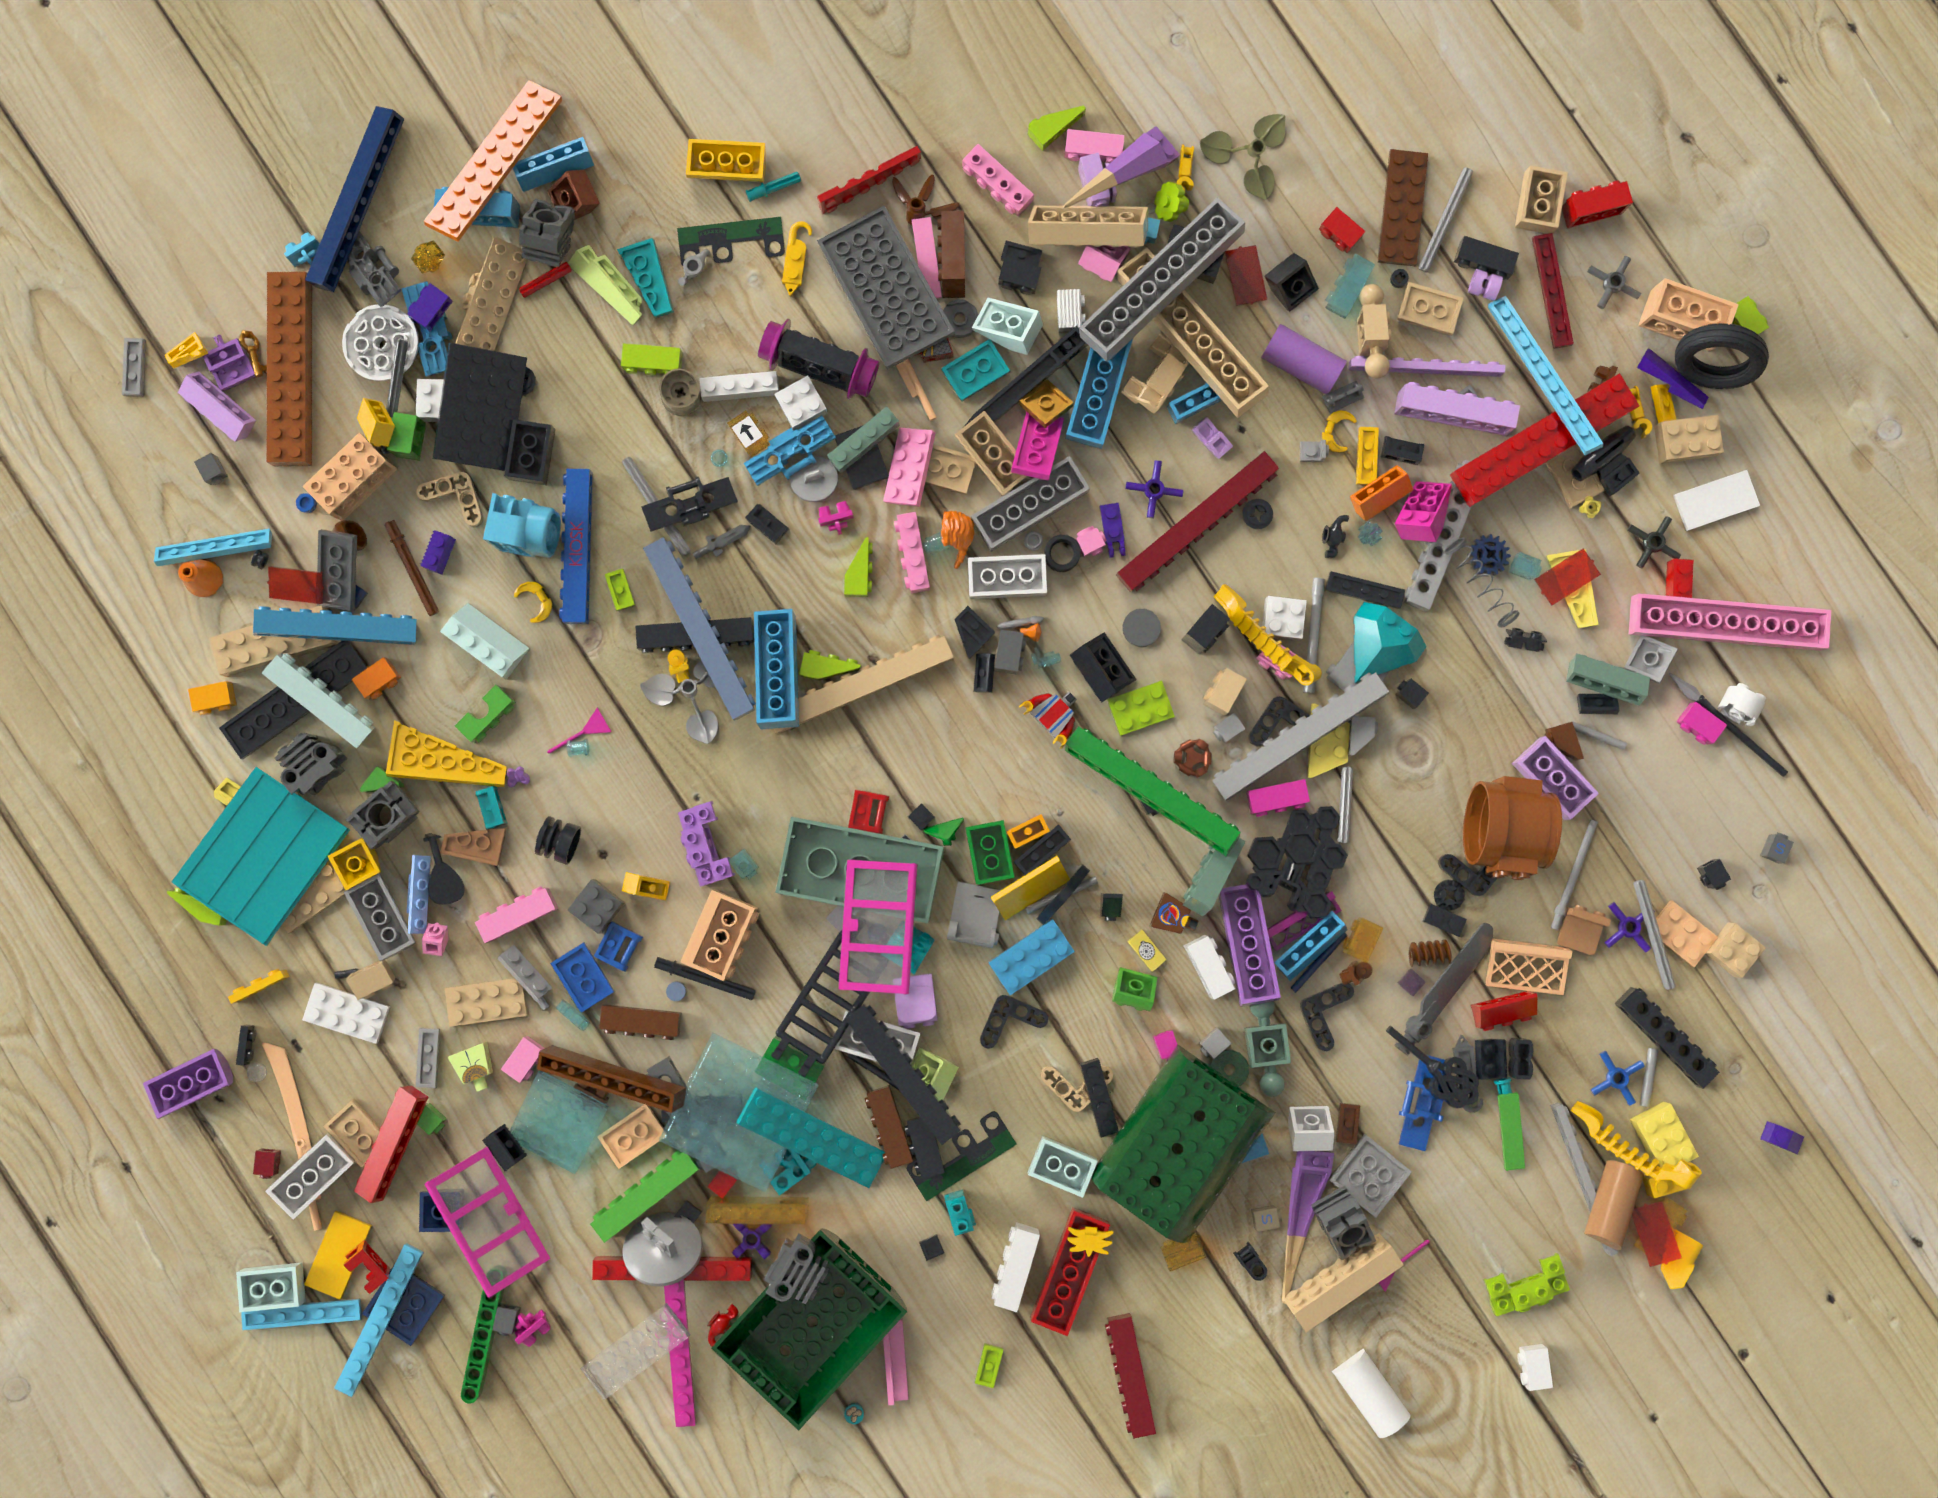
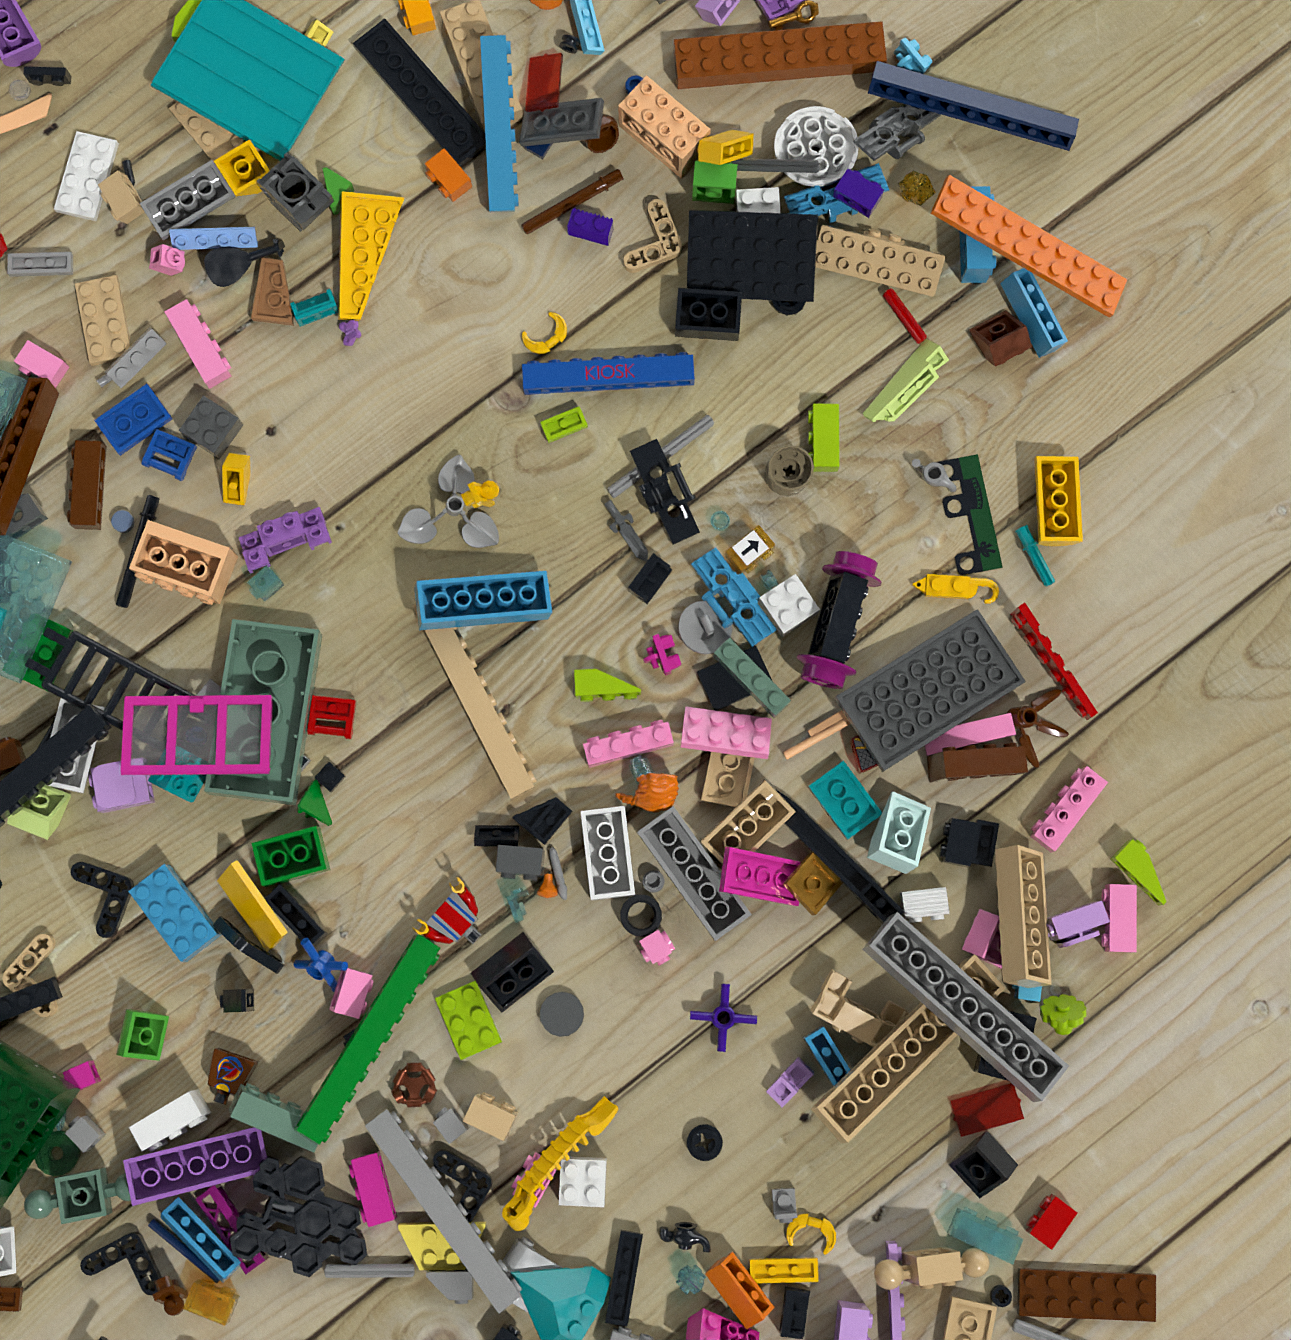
camera: 90 degrees right, 5 degrees down
(258, 985) = (111, 83): yellow plate -> none
(309, 763) = (349, 112): dark grey piece -> none
(318, 699) = (417, 114): light aqua brick -> none
(473, 1065) = (33, 311): yellowish green torso -> none
(485, 640) = (497, 285): light aqua slope -> none
(498, 703) = (429, 305): bright green arch -> none
(522, 527) = (620, 309): medium azure brick -> none
(546, 232) = (954, 310): dark grey piece -> none
(554, 839) = (280, 379): black wheel -> none
(573, 1015) = (91, 412): clear light blue beam -> none
(578, 747) = (385, 393): clear light blue bush -> none
(595, 724) = (413, 411): dark pink piece -> none
(645, 267) = (928, 423): teal wing -> none
(674, 635) = (519, 508): black brick -> none
(699, 629) = (521, 512): sand blue brick -> none
(739, 386) = (802, 536): white brick -> none
(777, 419) = (769, 580): none -> clear light blue bush
(822, 667) = (491, 650): lime slope -> none
(965, 308) = (917, 778): dark grey tile -> none
(974, 917) = (218, 843): light grey door -> none
(1027, 831) = (317, 898): light orange brick -> none
(1044, 902) = (239, 924): light grey bar -> none
(1085, 830) = (320, 964): none -> blue bar
(1097, 398) = (823, 942): dark azure brick -> none
(1111, 806) = (351, 993): none -> bright pink brick
(1112, 527) = (676, 972): dark purple hinge -> none
(1145, 155) = (1114, 978): medium lavender plate -> none
(1146, 950) = (189, 1046): light yellow slope -> none
(1185, 168) = (1106, 1028): yellow piece -> none
(1200, 519) = (690, 1072): dark red brick -> none
(1209, 625) = (559, 1089): black brick -> none
(1270, 133) = (1101, 1119): olive plant -> none
(1303, 359) = (893, 1186): medium lavender brick -> none
(1317, 594) = (614, 1220): light grey piece -> none
(1343, 396) = (852, 1236): dark grey hinge -> none

